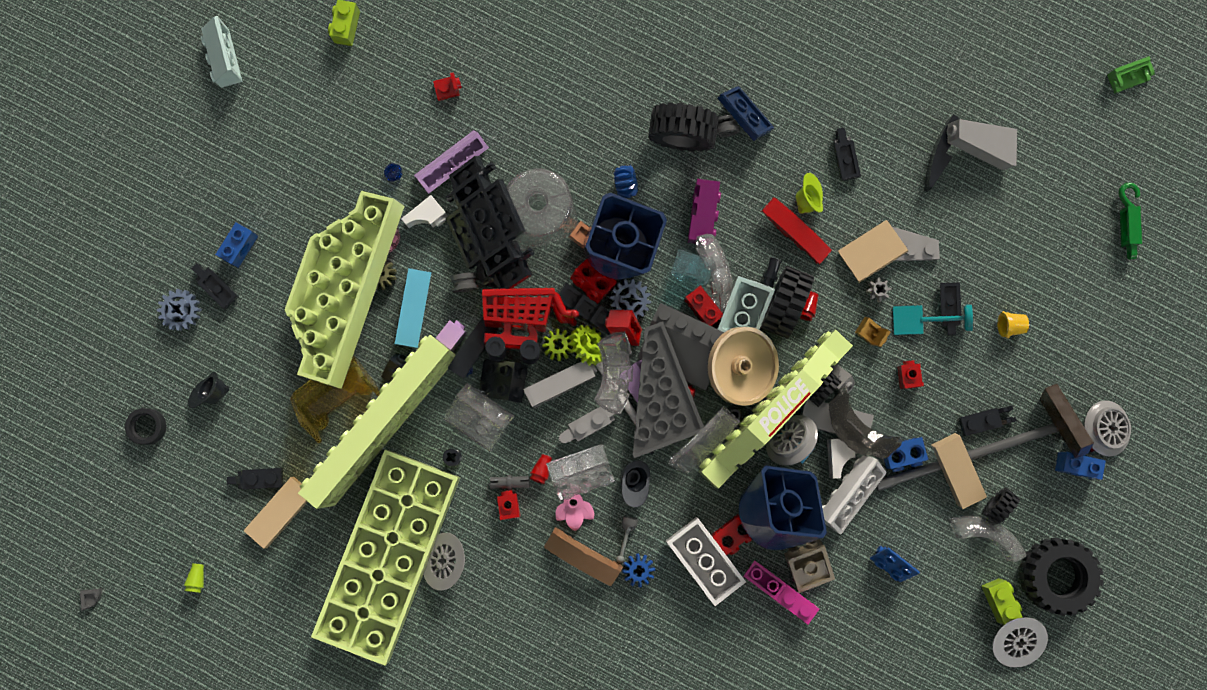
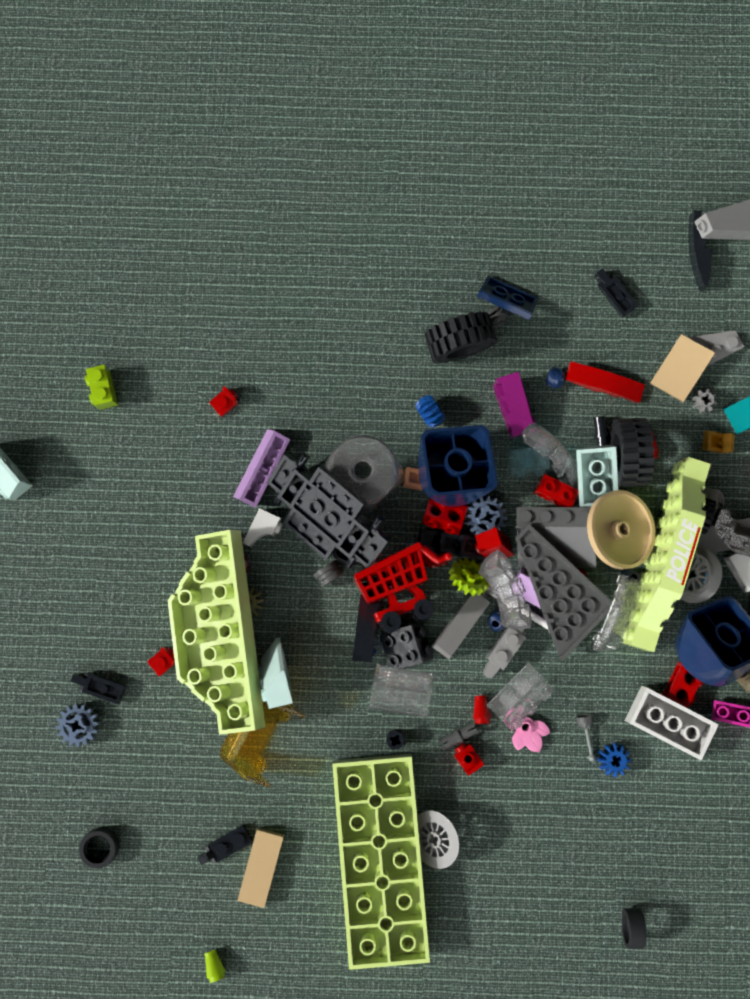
camera: 20 degrees left, 0 degrees up
(208, 391) = (141, 787): black piece -> none
(236, 245) = (102, 639): blue brick -> none
(280, 289) = (162, 660): none -> red bracket
(372, 349) = (275, 677): none -> light aqua slope
(377, 424) = (315, 745): yellowish green brick -> none
(393, 167) = (209, 499): clear blue plate -> none
(393, 364) = (304, 682): black bracket -> none
(412, 308) = (292, 620): medium azure brick -> none
(452, 334) = (340, 627): lavender brick -> none
(551, 346) = (436, 594): lime gear -> none
(583, 557) = (558, 773): medium nougat windscreen -> none
(590, 394) = (494, 621): none -> dark blue piece
(635, 483) = (573, 682): black piece -> none
(753, 206) = (555, 378): none -> dark blue piece
(810, 196) = (601, 345): lime piece -> none

